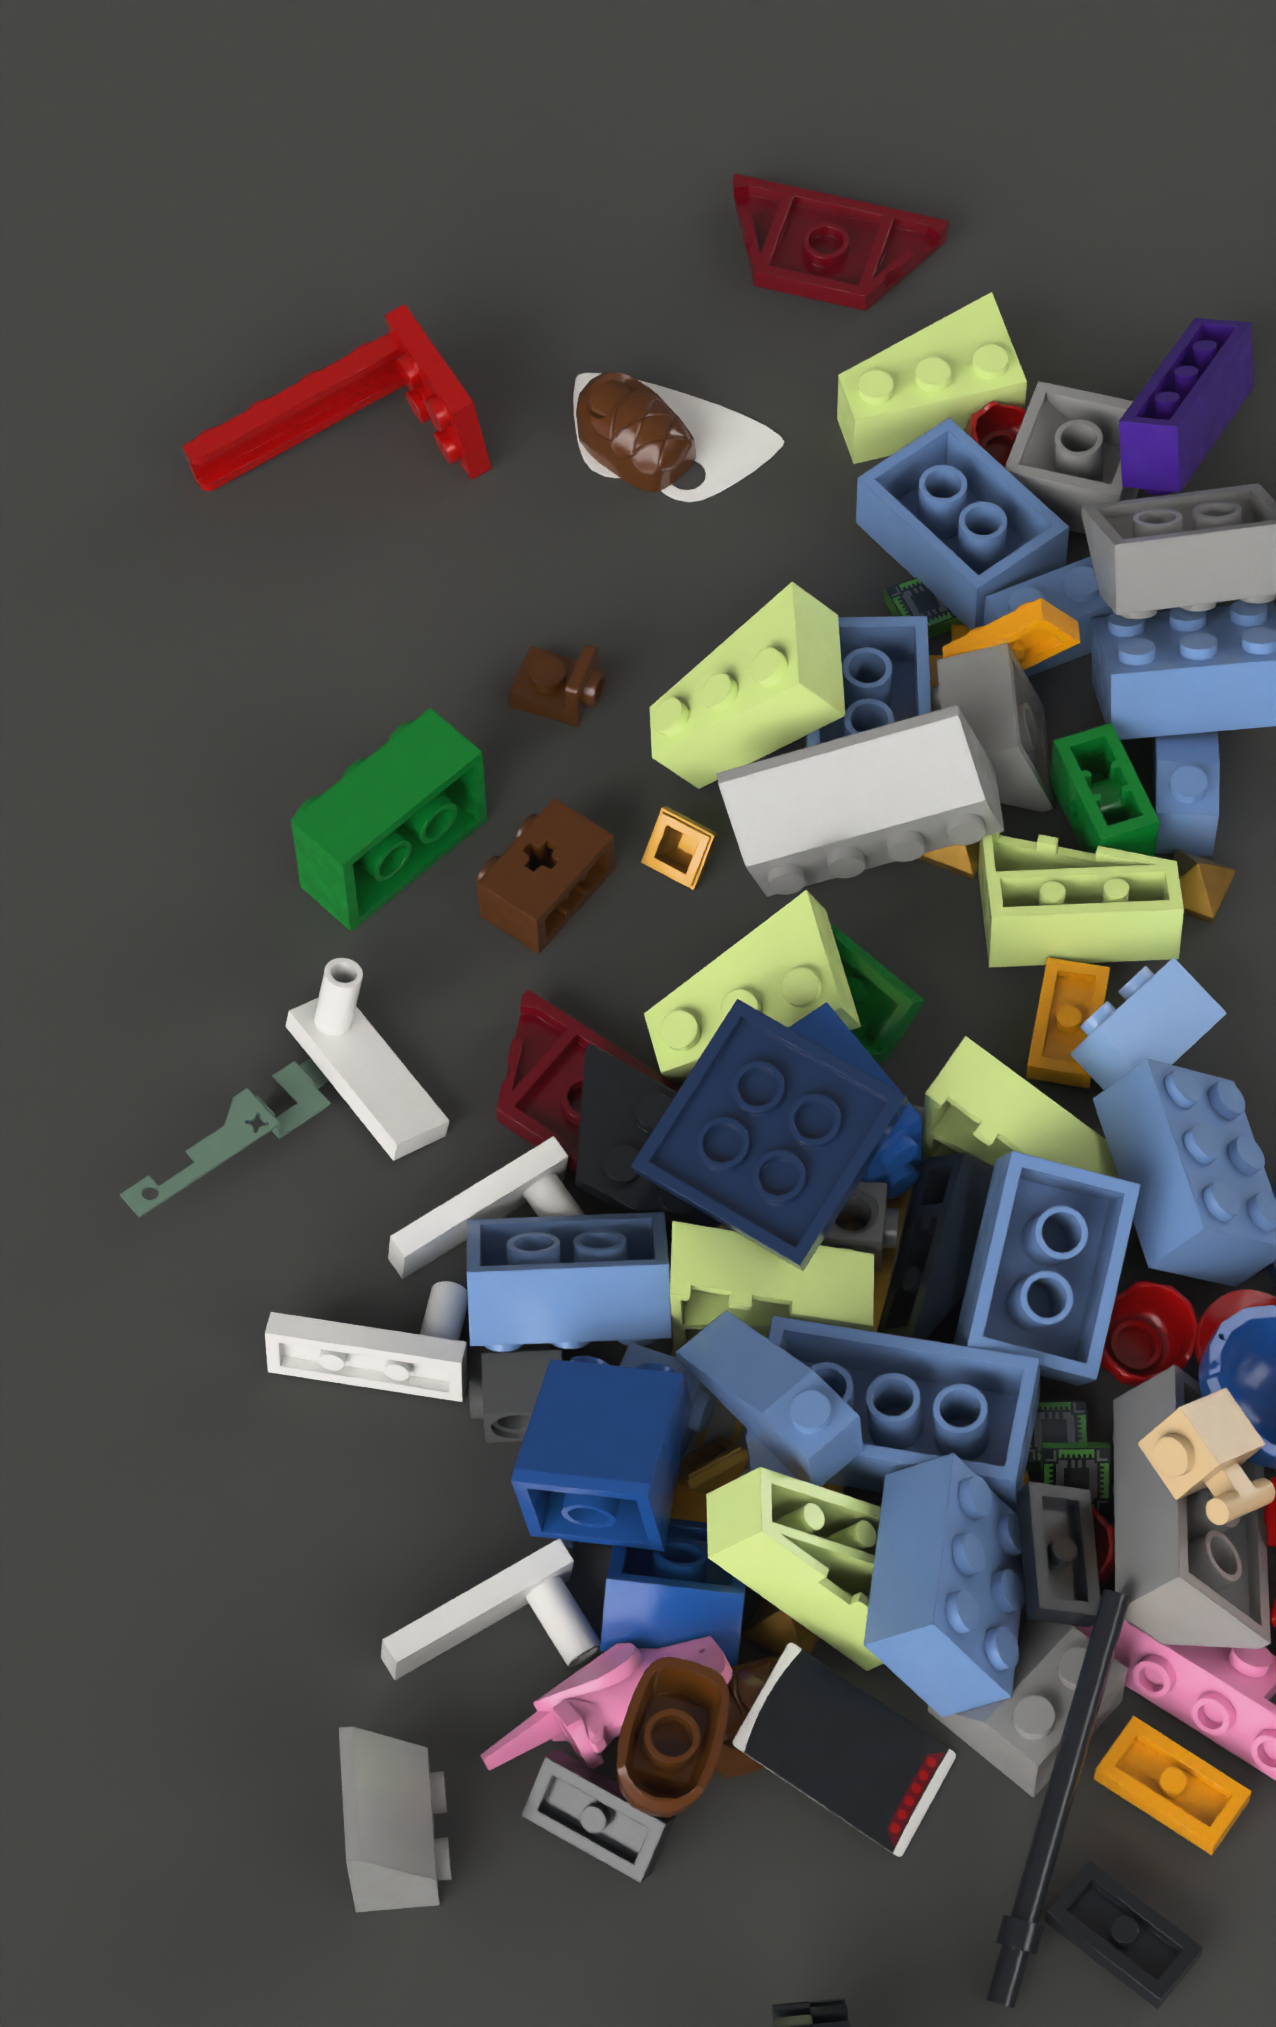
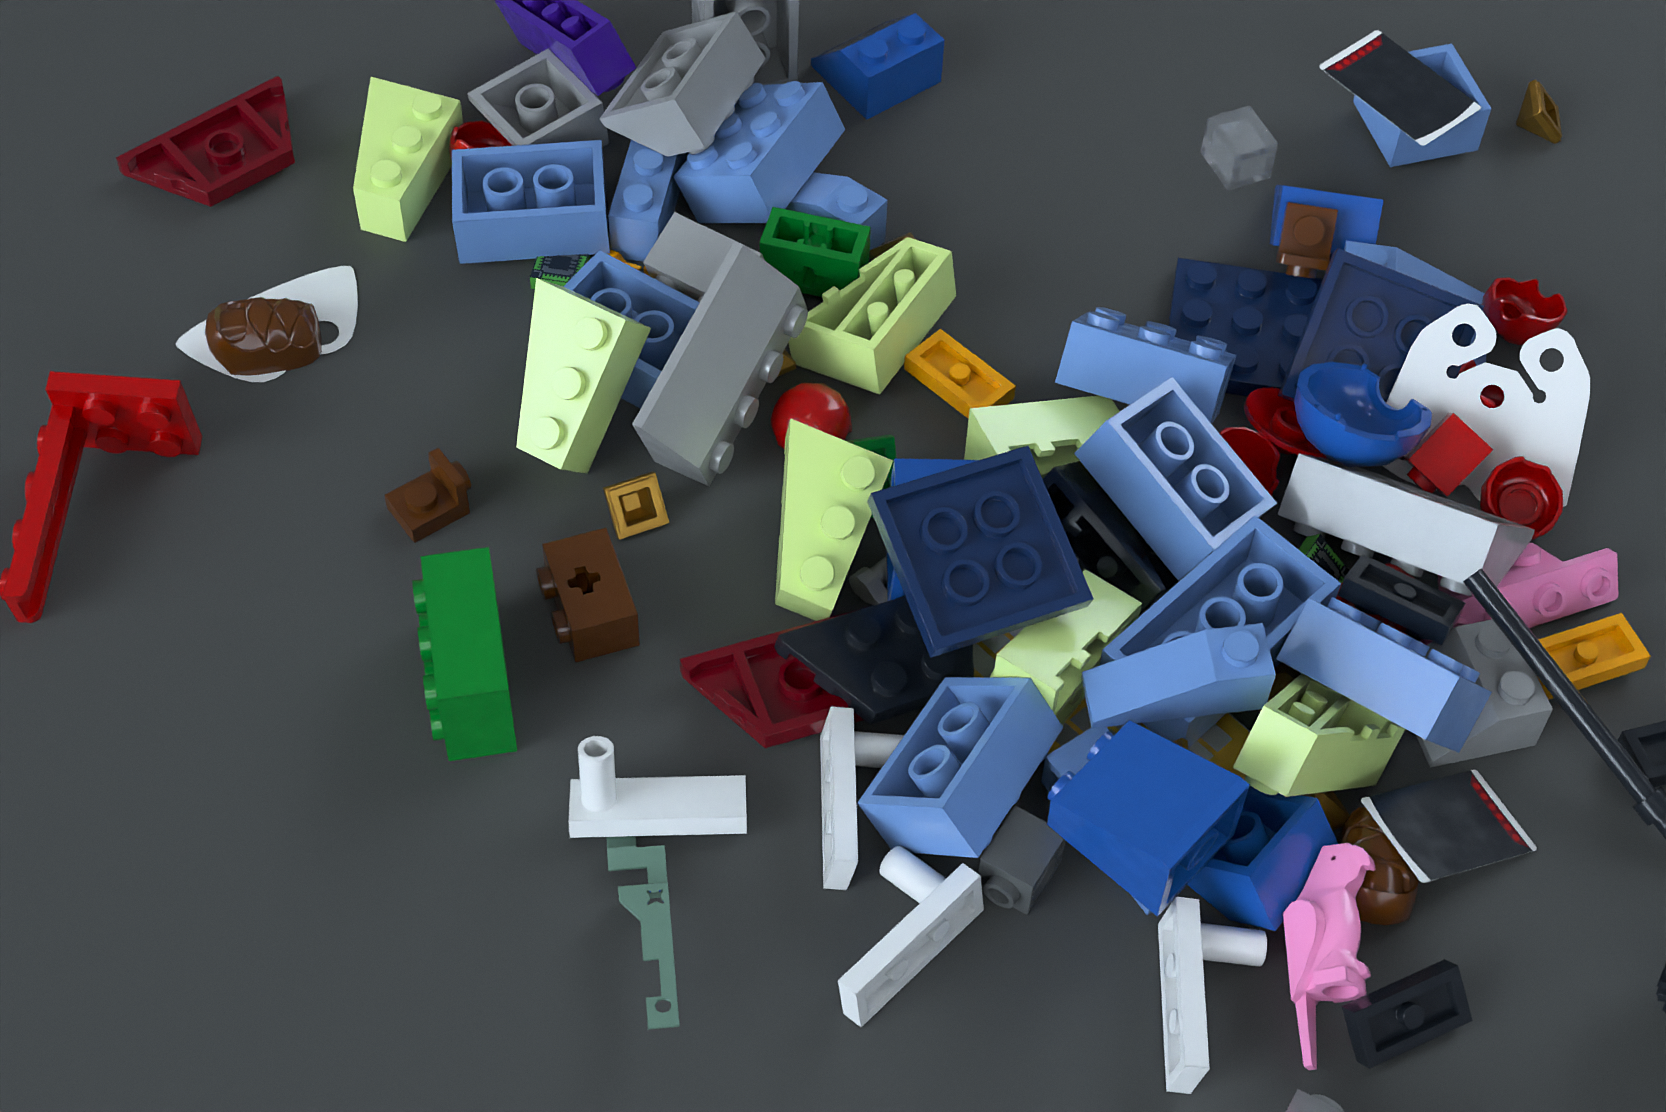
camera: 60 degrees left, 5 degrees down
(672, 1736) = (1410, 910): reddish brown piece -> none
(907, 929) = (814, 406): none -> red hair
(1032, 631) = (673, 193): light orange plate -> none
(1156, 1022) = (1014, 334): light blue brick -> none
(1204, 1448) = (1405, 460): tan brick -> none

